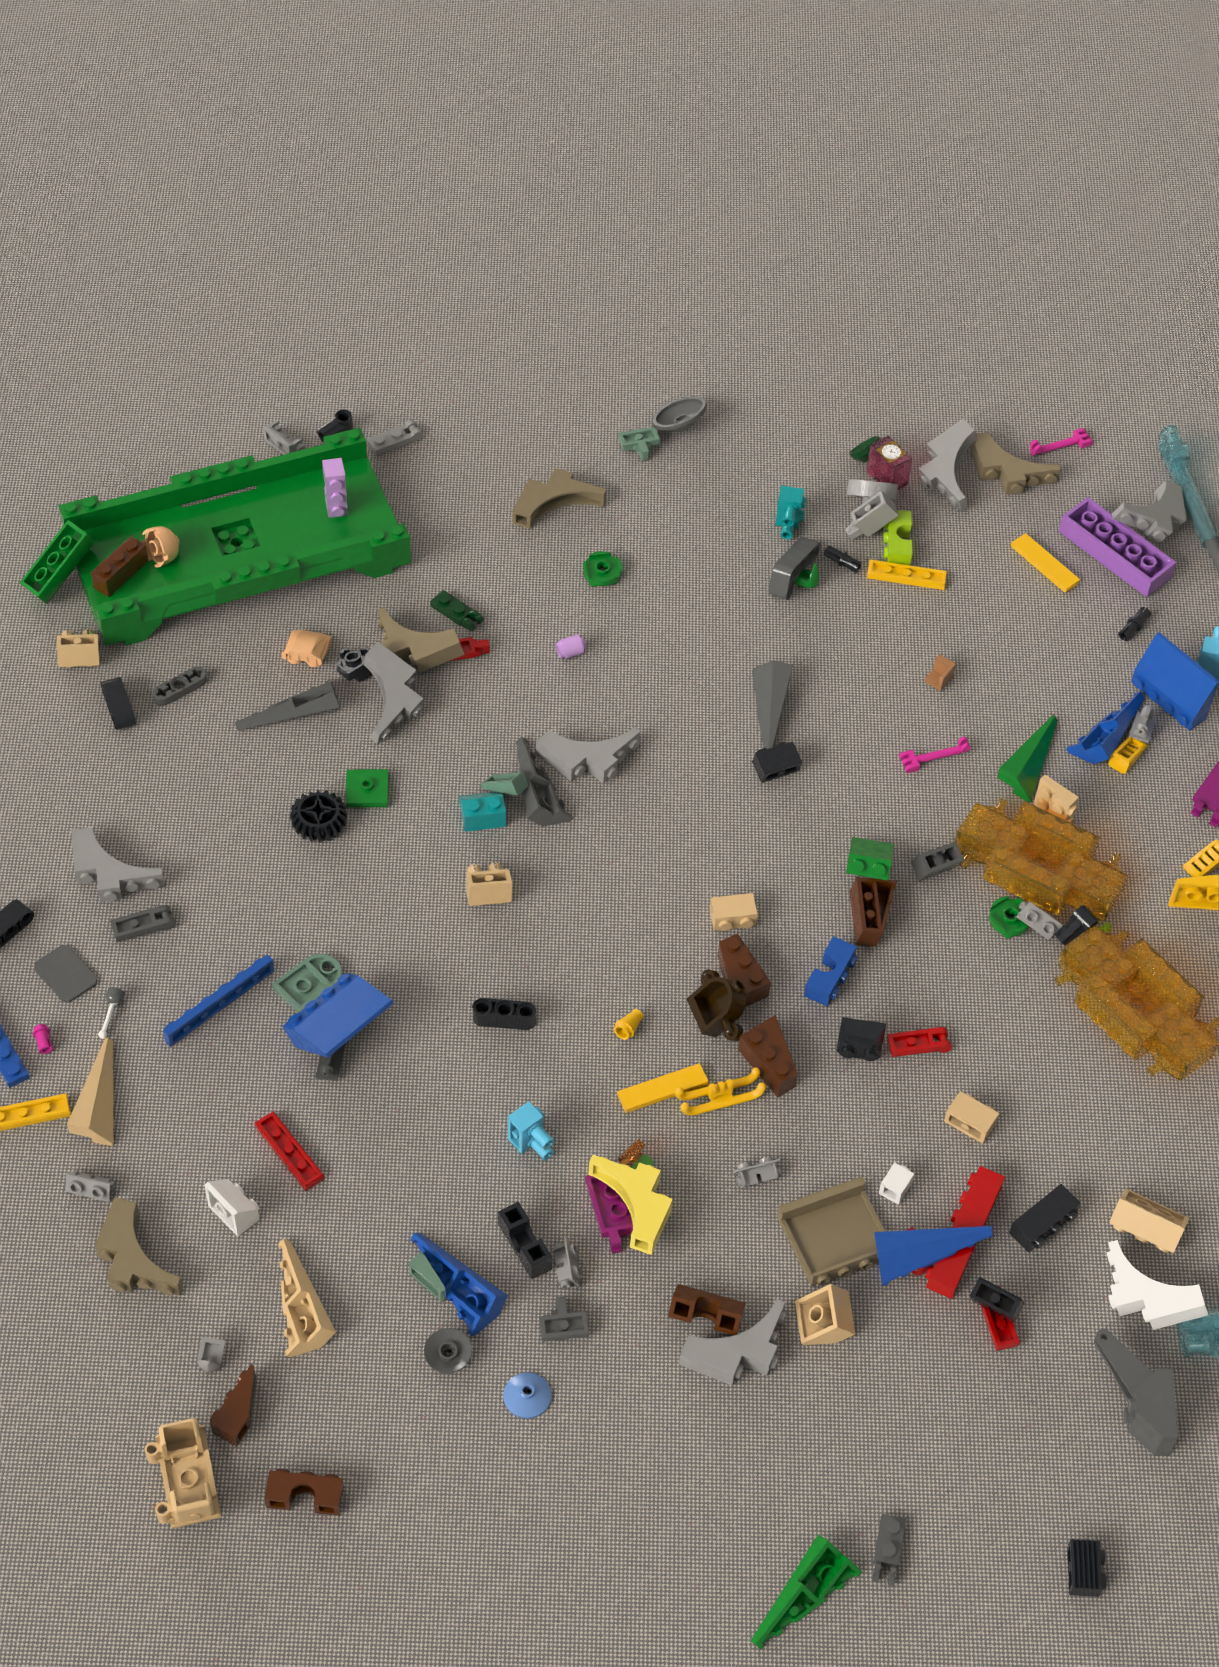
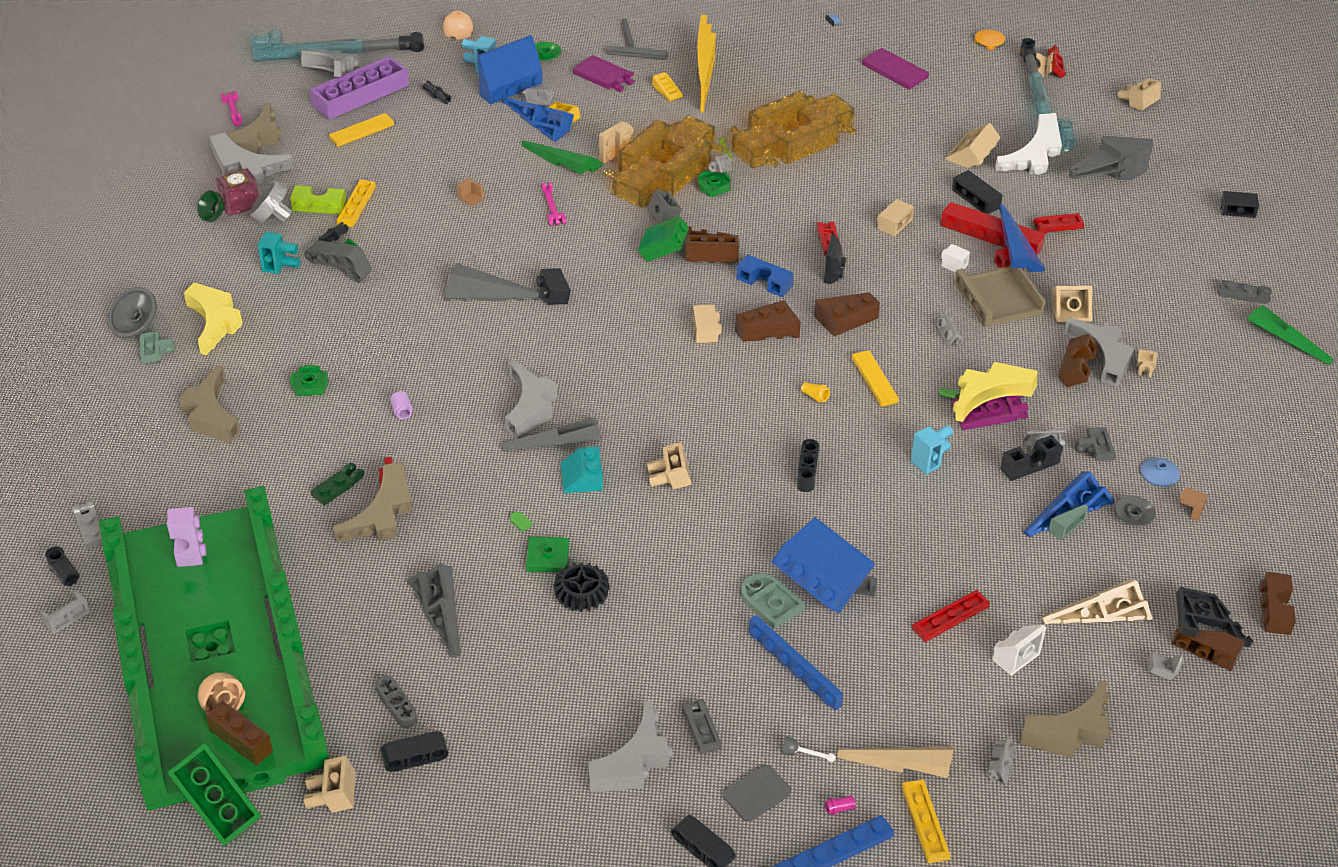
camera: 85 degrees left, 10 degrees down
(186, 1474) = (1288, 679): tan container -> none
(290, 1403) = (1207, 609): none -> black wing
(307, 647) = (363, 596): light nougat slope -> none
(351, 664) = (392, 556): black plate -> none
(395, 681) = (449, 522): light grey arch -> none
(414, 763) = (520, 521): none -> bright green piece
(464, 1417) = (1194, 499): none -> medium nougat panel
(506, 783) = (562, 442): sand green slope -> none
(632, 1153) = (940, 395): clear orange plate -> none
(685, 483) = (218, 312): none -> light yellow arch
(718, 1005) = (804, 330): dark brown piece -> none
(720, 1094) = (880, 343): yellow piece -> none
(724, 1398) = (1146, 361): none -> tan plate
(872, 516) = (298, 205): light grey hinge -> none
(996, 1300) = (1056, 211): black brick -> none
(1080, 921) = (728, 141): black piece -> none

